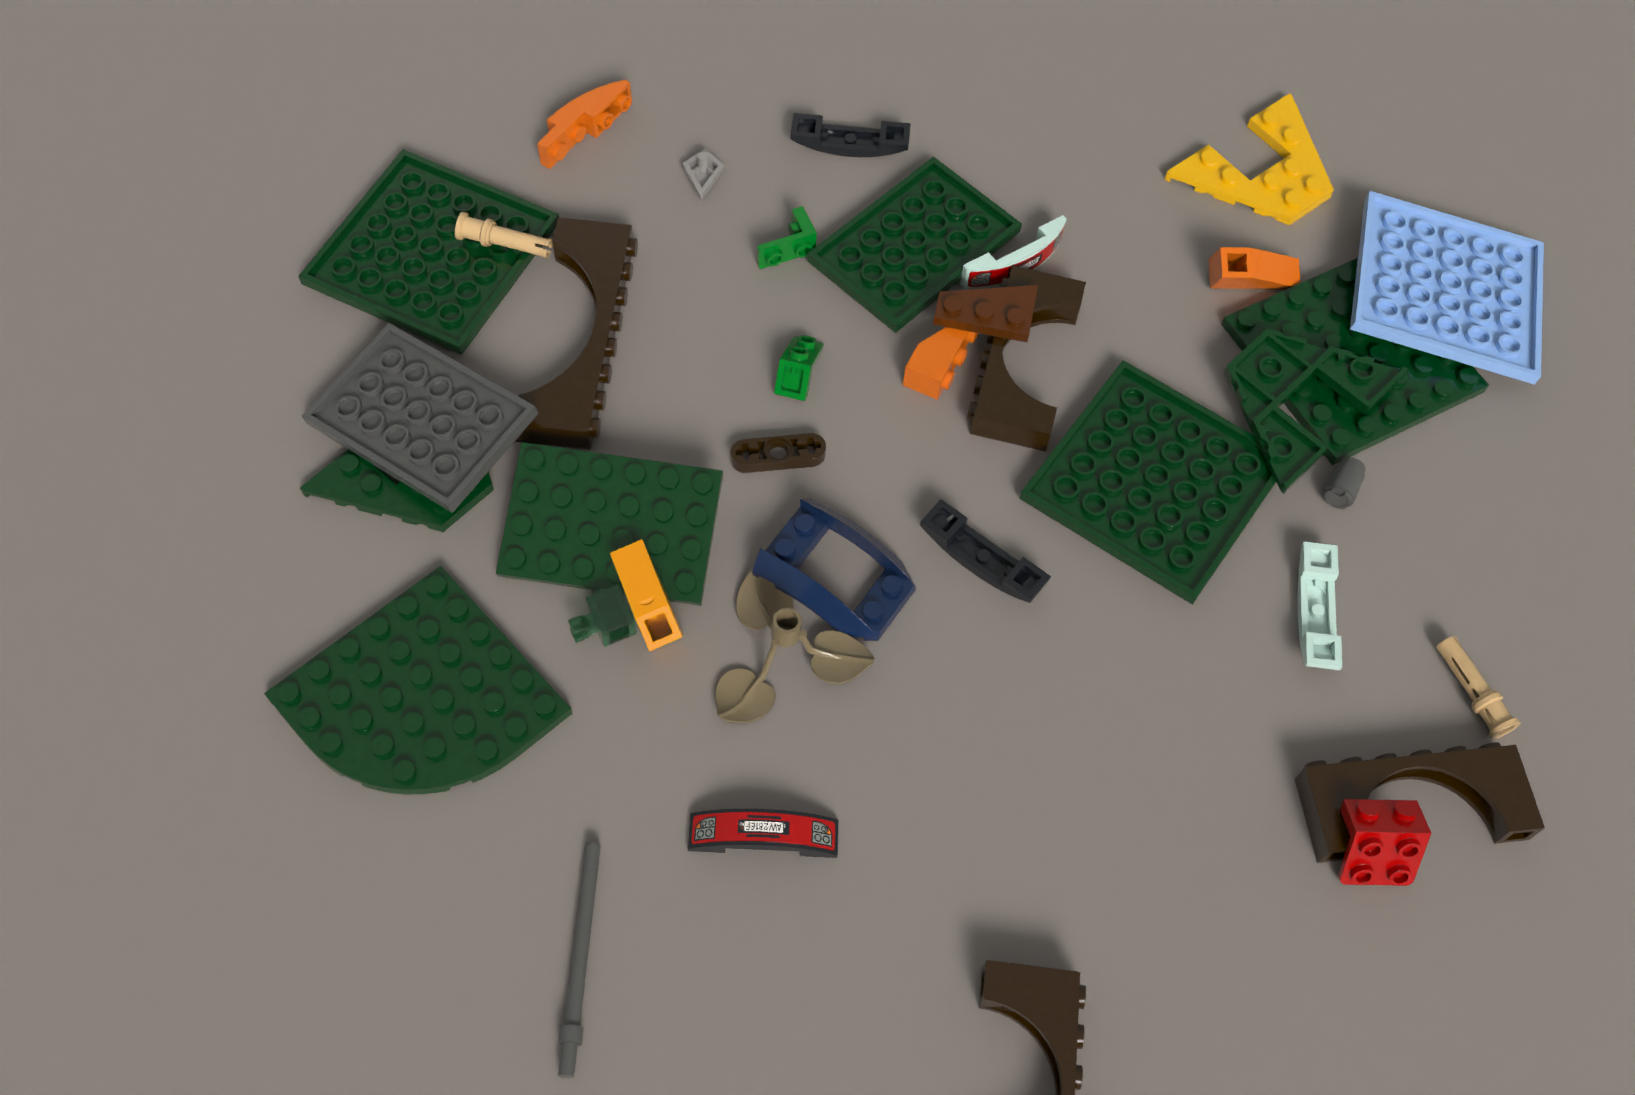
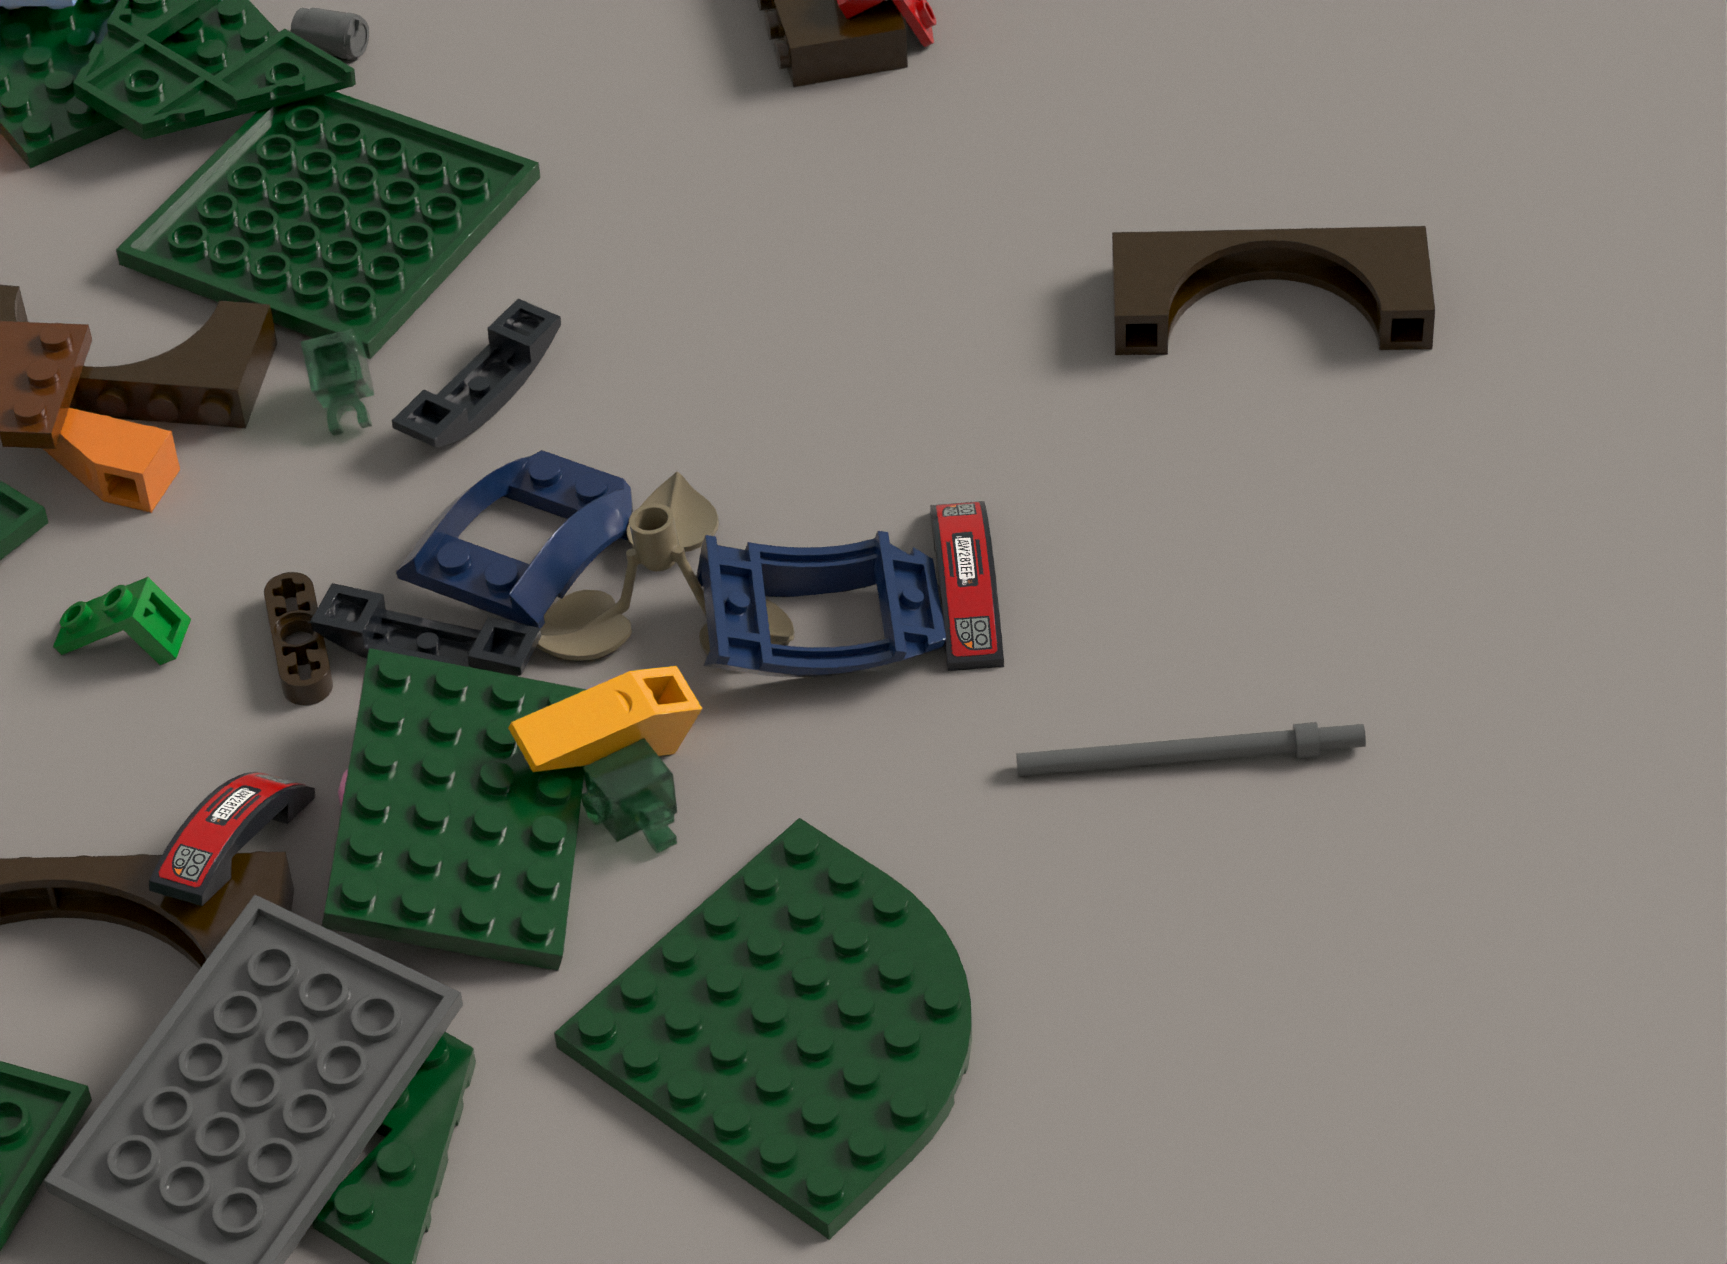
camera: 90 degrees left, 15 degrees down
(615, 406) = (227, 819): none -> slope
(736, 680) = (738, 617): none -> dark blue wedge
(760, 514) = (360, 621): none -> black slope
(988, 472) = (339, 376): none -> clear green brick
(1317, 606) = (538, 63): light aqua slope -> none

